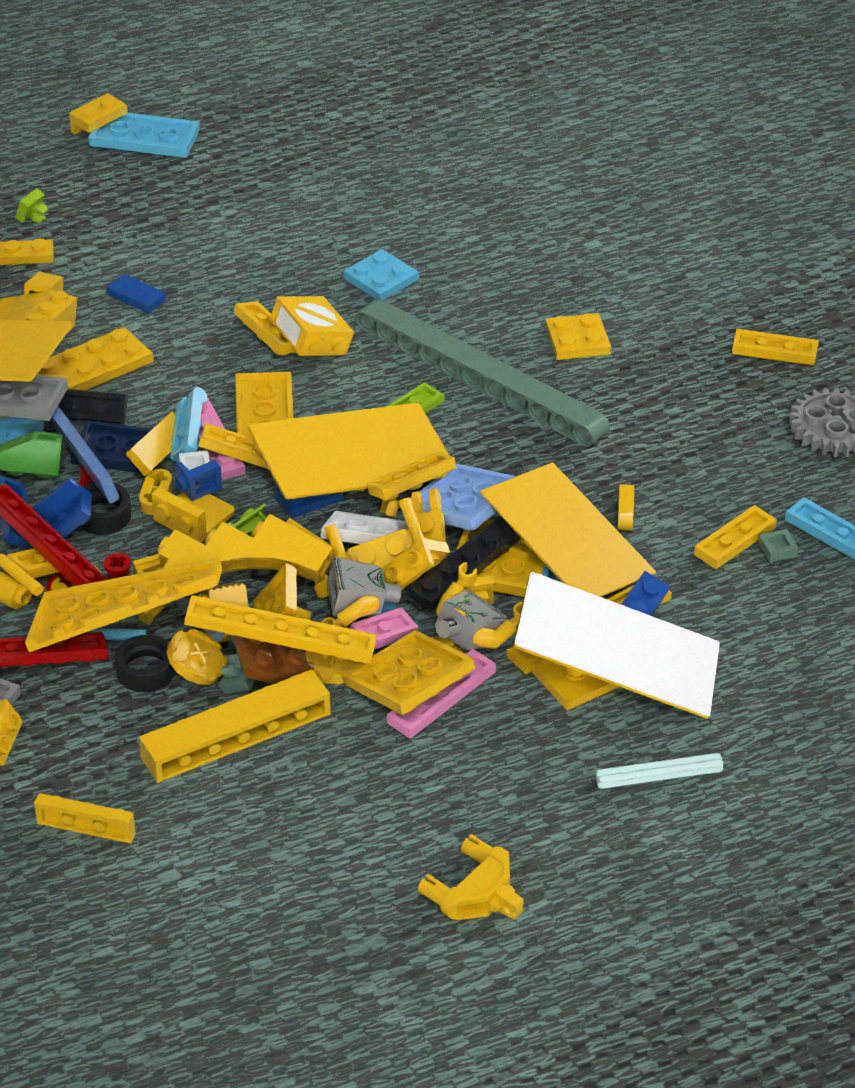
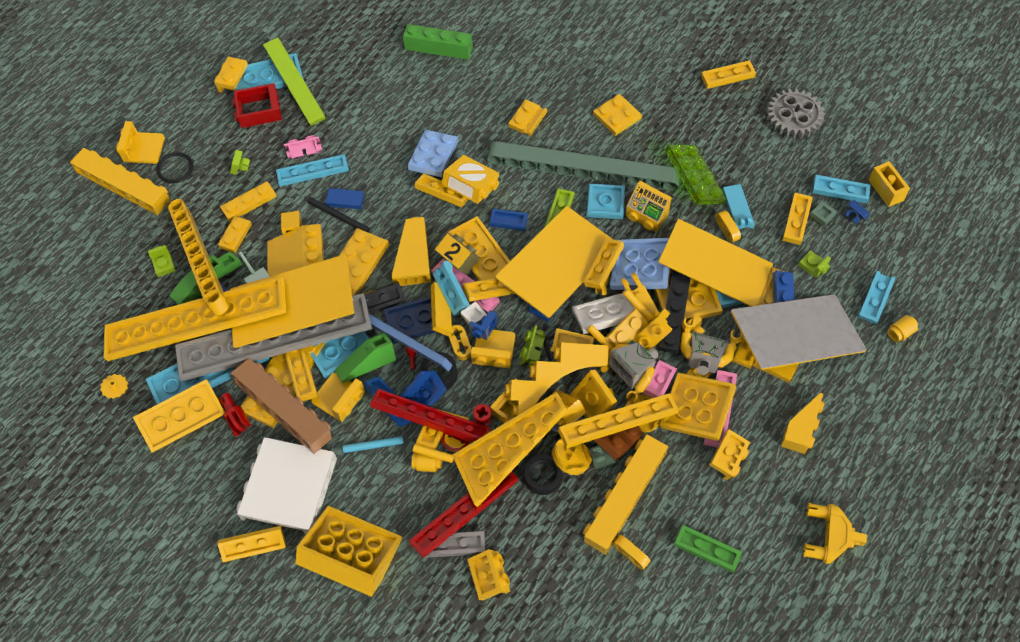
camera: 25 degrees left, 20 degrees up
(85, 818) = (588, 607): yellow plate -> none
(113, 306) = (346, 219): none -> black bar
(120, 250) = (312, 170): none -> medium azure tile
(124, 148) = (252, 95): none -> red window
(139, 221) = (310, 144): none -> bright pink hinge
(170, 149) = (294, 81): none -> lime tile
(171, 376) = (412, 256): none -> yellow slope
(189, 787) = (631, 552): none -> yellow beam
(228, 394) = (458, 254): none -> brick
(291, 279) = (433, 153): none -> light blue plate
(295, 828) = (708, 548): none -> bright green plate
(330, 392) = (508, 219): none -> blue tile
(381, 275) = (478, 119): medium azure plate -> none
(395, 172) = (438, 41): none -> bright green brick
(408, 739) = (729, 454): none -> yellow bracket
(449, 296) = (527, 117): none -> yellow plate
(478, 419) = (606, 201): none -> medium azure plate
(525, 438) = (648, 207): none -> slope
(538, 754) = (800, 428): none -> yellow slope
(627, 433) = (695, 174): none -> clear neon green plate
(659, 770) = (867, 401): light aqua axle -> none
(662, 495) = (738, 206): none -> medium azure hinge
(717, 596) = (814, 264): none -> lime bracket
(774, 664) = (876, 298): none -> medium azure hinge
(781, 711) = (902, 328): none -> yellow brick
(830, 560) = (857, 209): none -> blue tile

